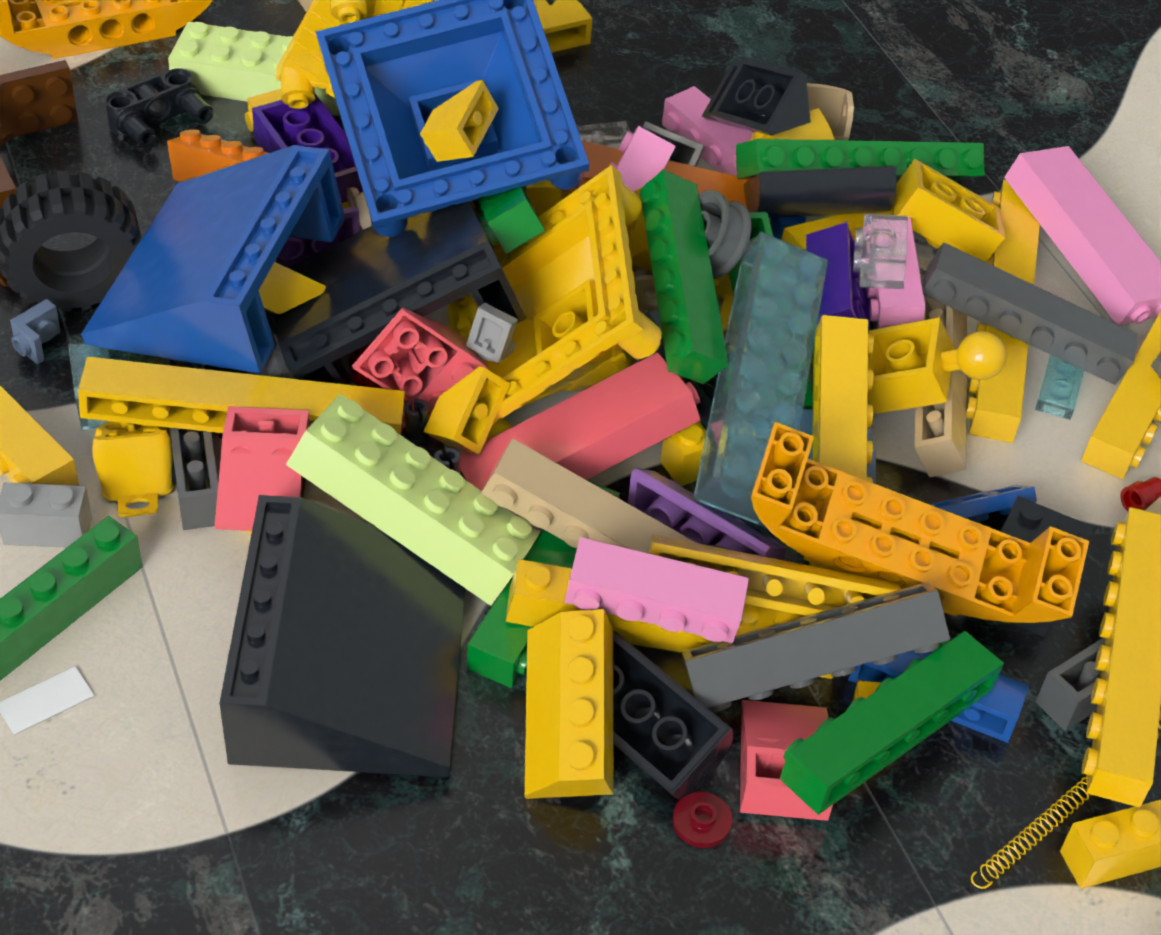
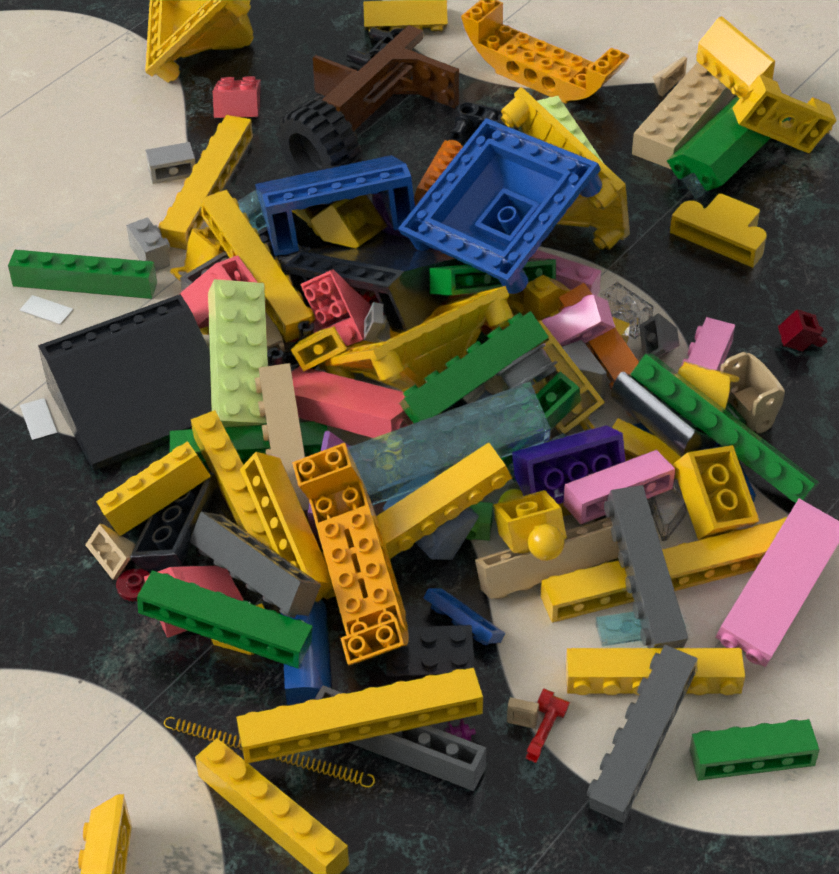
camera: 65 degrees right, 0 degrees up
(35, 328) = (270, 172): sand blue bracket -> none
(277, 805) = (38, 418): none -> white sticker
(460, 123) = (489, 213): yellow slope -> none
(630, 819) = (110, 550): none -> tan slope
(657, 590) = (225, 469): bright pink brick -> none
(733, 46) = (801, 331): none -> dark red brick
(760, 98) = (709, 347): black slope -> none
(881, 251) = (610, 461): clear brick -> none

